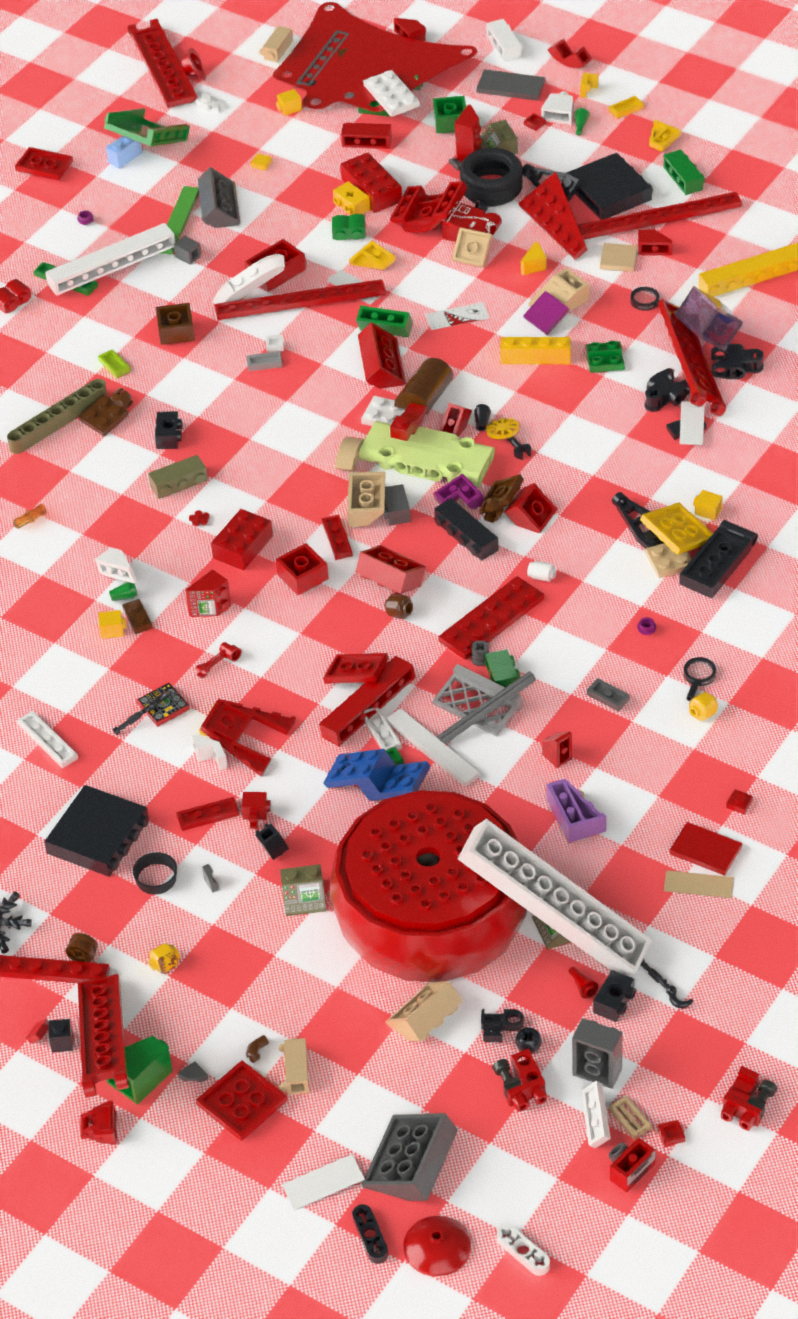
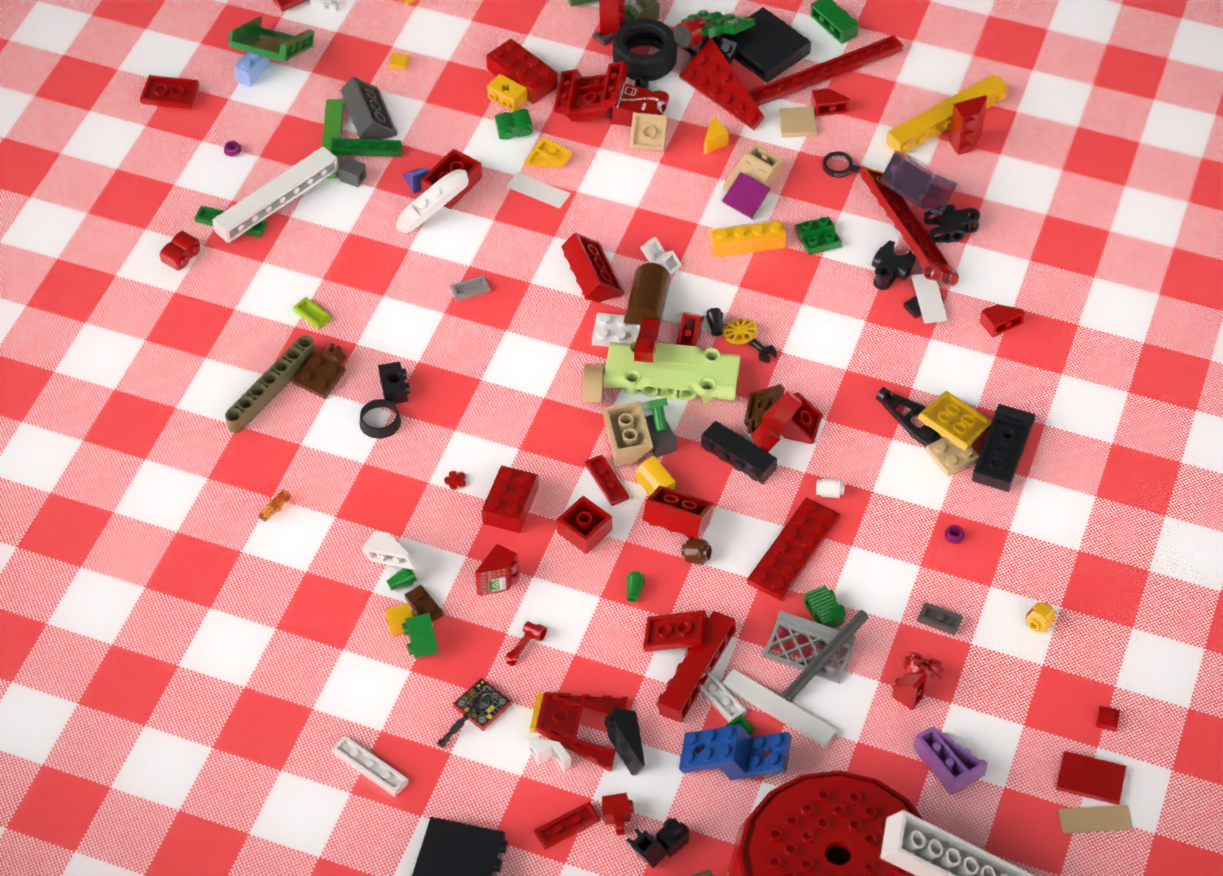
camera: 15 degrees left, 5 degrees up
(123, 638) = (420, 635): none -> green brick
(144, 469) = (383, 432): none -> black tyre
(175, 323) = (366, 259): reddish brown brick -> none
(177, 476) = (420, 436): olive brick -> none
(207, 230) = (366, 147): none -> green tile
(240, 258) = (414, 178): none -> slope
(274, 343) = (475, 266): white plate -> none
(281, 748) = (625, 736): none -> black slope
(298, 835) = (673, 836): none -> black brick
(299, 299) = (486, 213): red plate -> none
(333, 625) = (634, 585): none -> green cone
(366, 135) = (500, 18): red brick -> none
(380, 534) = (652, 474): none -> yellow brick
(392, 321) = (591, 226): green brick -> none
(397, 477) = (658, 412): none -> green piece
(445, 352) = (655, 254): none -> white slope
(457, 316) = (653, 209): white sticker -> none
(460, 488) = (719, 407): magenta brick -> none
(479, 650) = (796, 592): dark grey bush -> none
(504, 504) = (774, 421): none -> red slope
(536, 163) = (707, 24): none -> plate
(578, 731) = (921, 665): none -> red plate
(698, 672) = (1022, 578): piece -> none
(708, 504) = (974, 387): yellow brick -> none
(755, 449) = (1001, 318): none -> red slope
(778, 275) = (967, 124): none -> red slope

